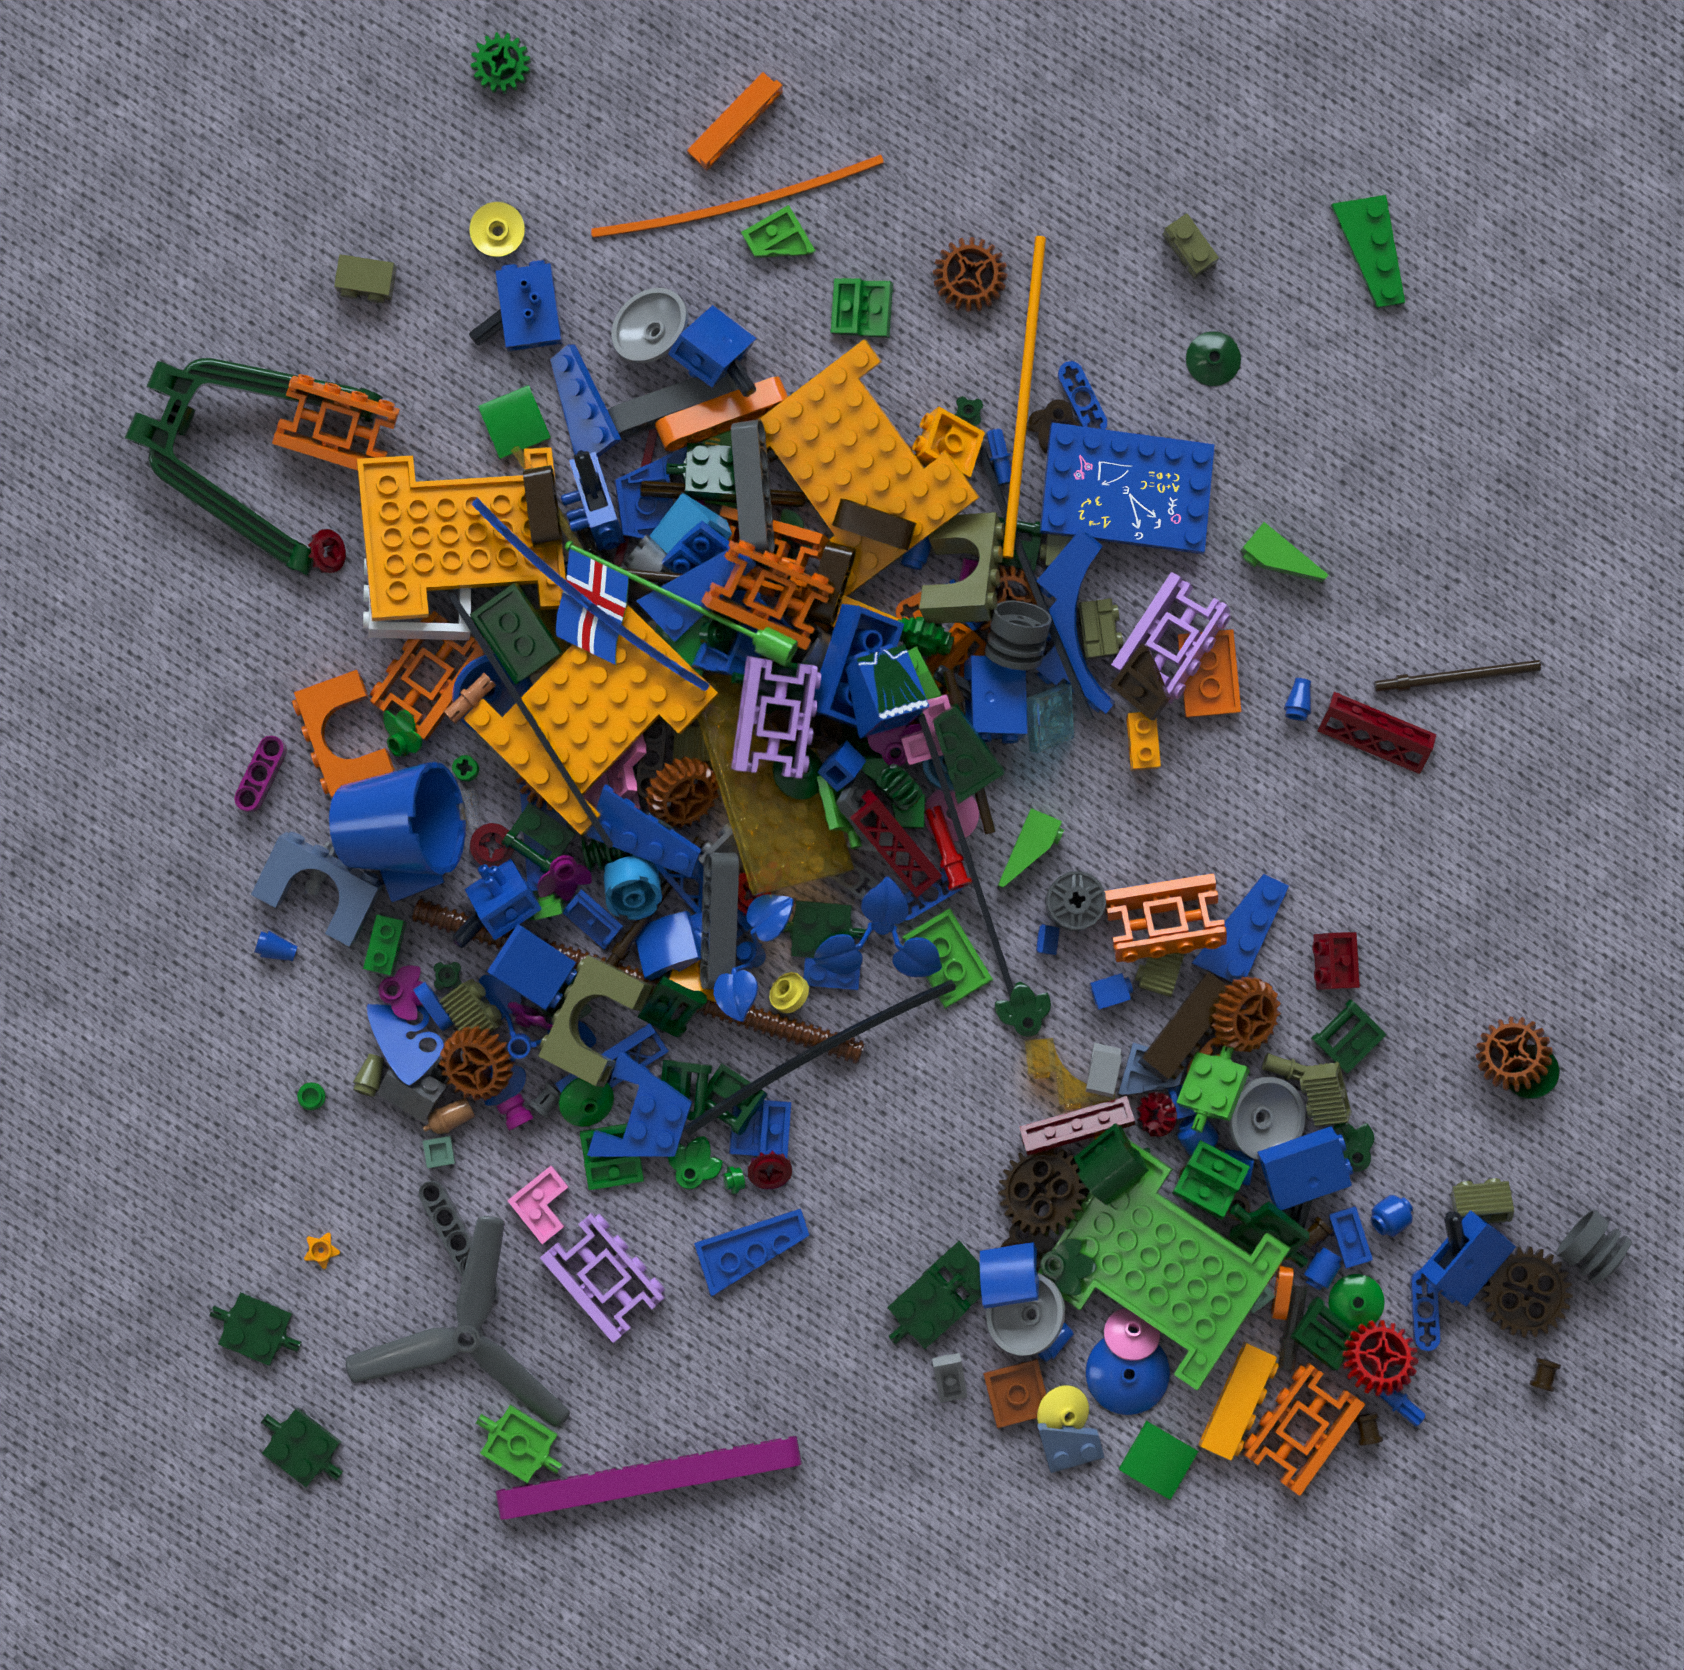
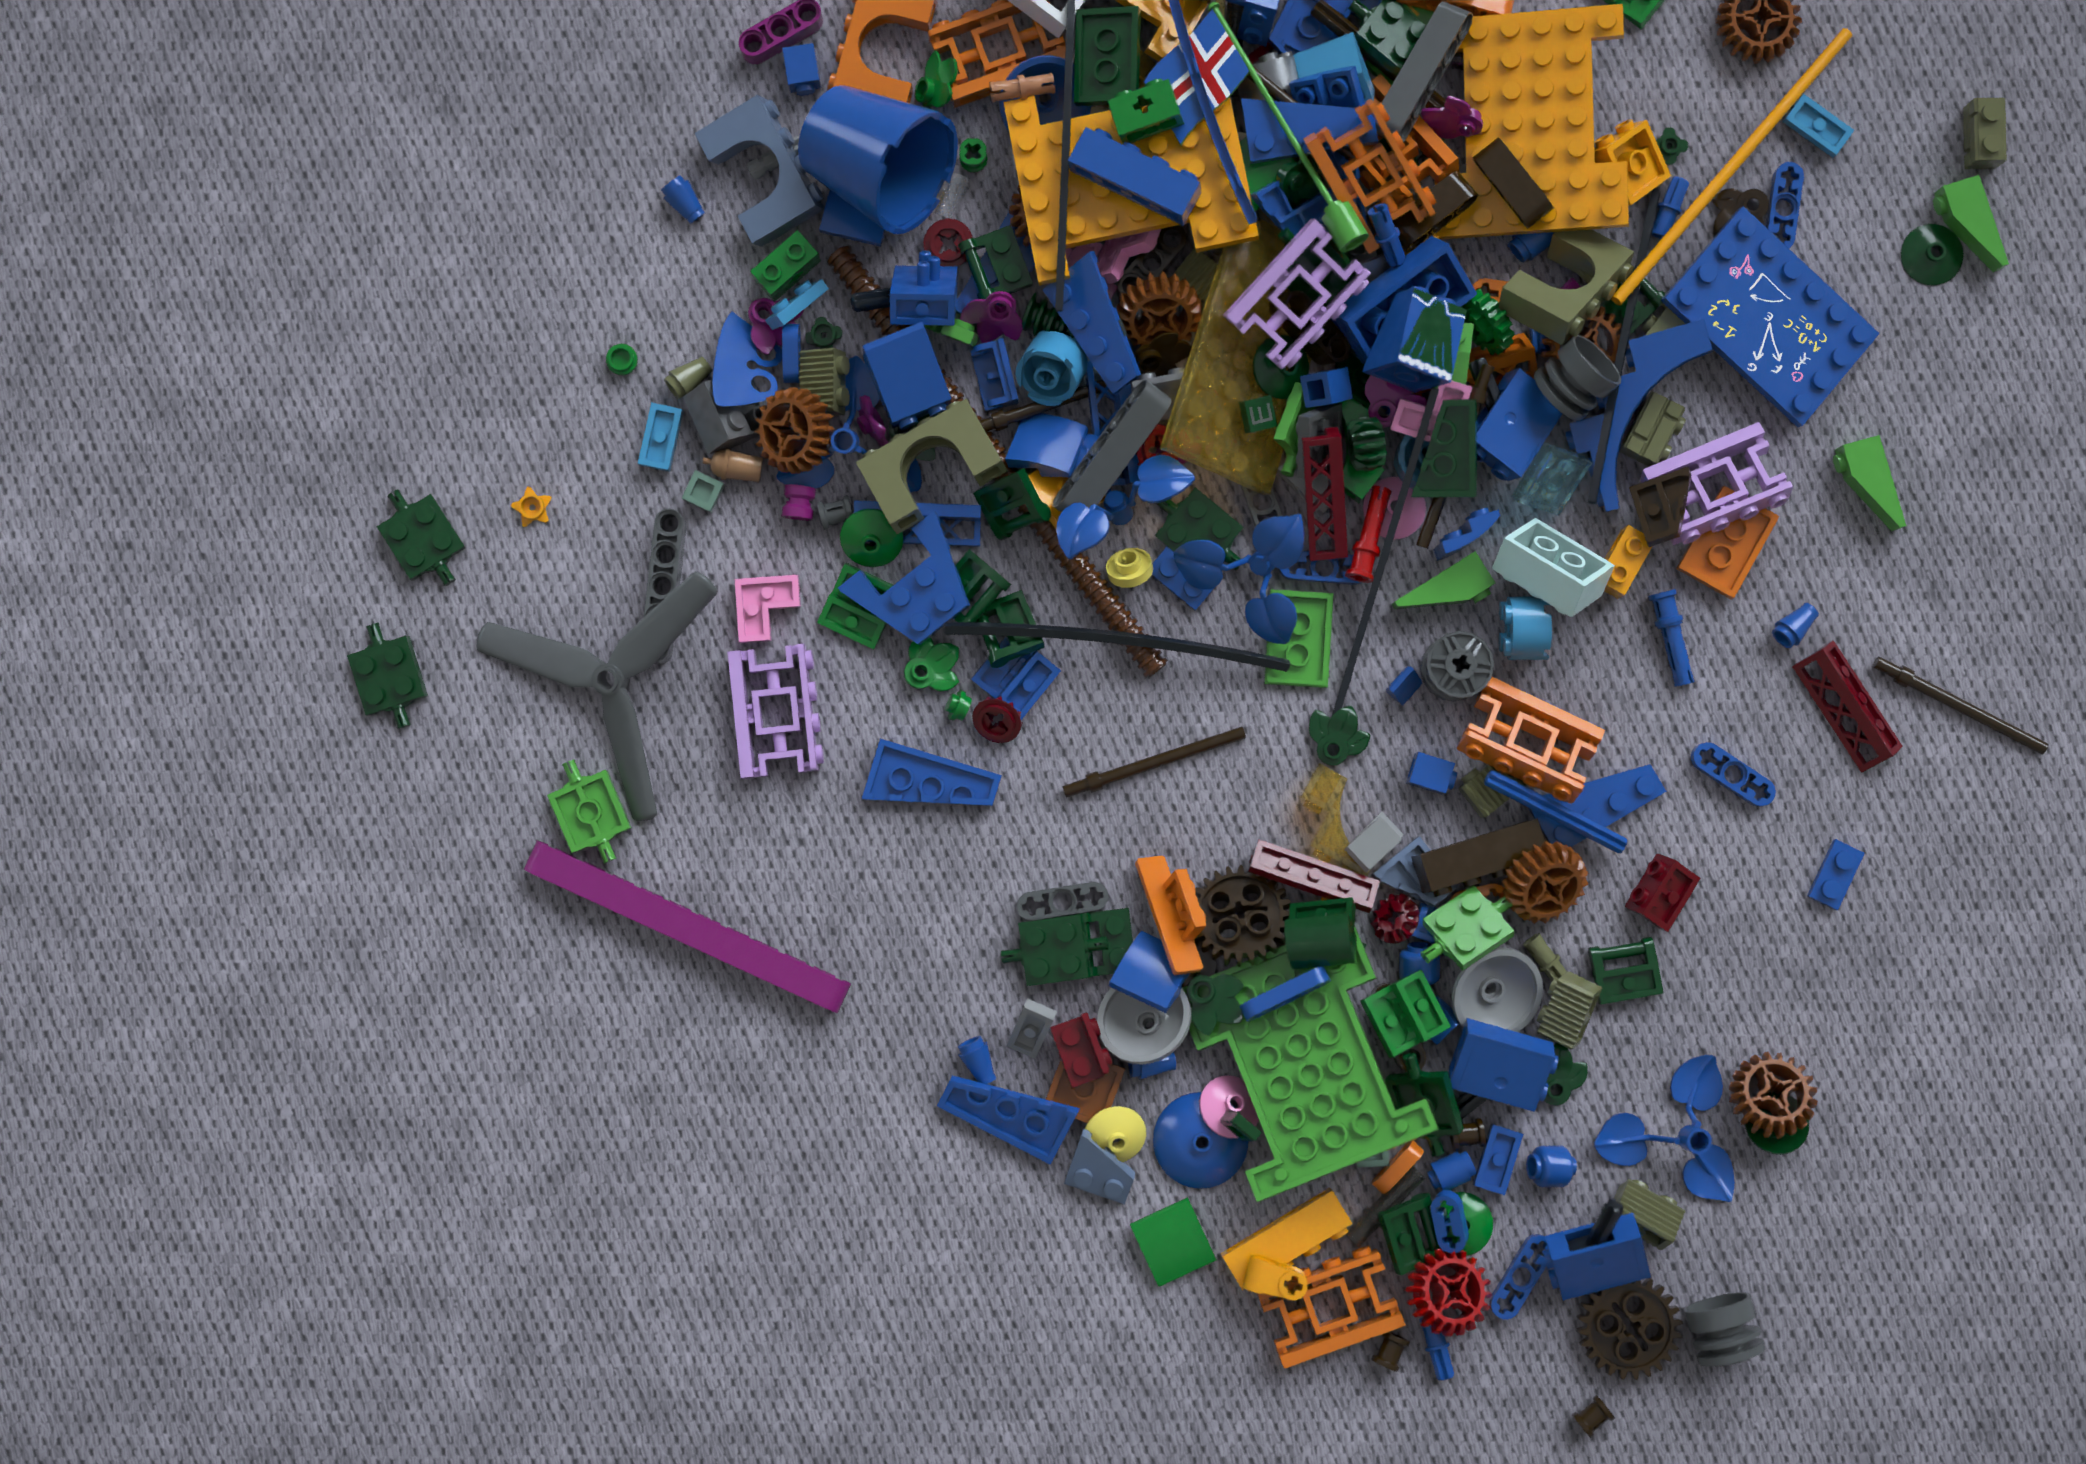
camera: 35 degrees right, 0 degrees up
(296, 791) = (802, 69): none -> blue brick
(380, 1133) = (660, 437): none -> dark azure plate
(409, 977) = (786, 310): none -> dark azure plate
(587, 653) = (1161, 115): none -> green brick
(598, 711) = (1135, 175): none -> blue brick
(705, 822) = (1162, 354): none -> dark brown plate
(799, 506) = (1453, 119): none -> magenta plate
(806, 819) = (1258, 414): none -> dark green tile
(810, 628) = (1387, 235): none -> blue axle
(872, 1164) = (1095, 781): none -> dark brown bar
(909, 1280) = (1087, 905): none -> dark grey beam
(925, 1426) = (977, 1059): none -> blue cone
(982, 1450) = (1014, 1117): none -> blue wing
(994, 1222) = (1174, 911): none -> orange bracket
(996, 1369) = (1080, 1050): none -> dark red bracket
(1019, 791) = (1473, 528): none -> blue slope
(1066, 322) = (1818, 125): none -> dark azure plate
(1095, 783) = (1553, 567): none -> light aqua brick
(1106, 838) = (1526, 628): none -> dark azure brick
(1114, 1226) = (1285, 993): none -> blue beam
(1148, 1344) = (1240, 1126): none -> dark green tile
(1207, 762) = (1669, 622): none -> blue pin
(1218, 957) = (1555, 811): none -> blue axle
(1220, 314) = (1971, 219): none -> bright green slope
(1242, 1437) = (1268, 1278): none -> light orange piece
(1342, 1309) = (1456, 1221): none -> blue beam
(1349, 846) = (1748, 794): none -> blue beam
(1451, 861) = (1835, 874): none -> blue plate
(1508, 1138) = (1711, 1171): none -> blue plant

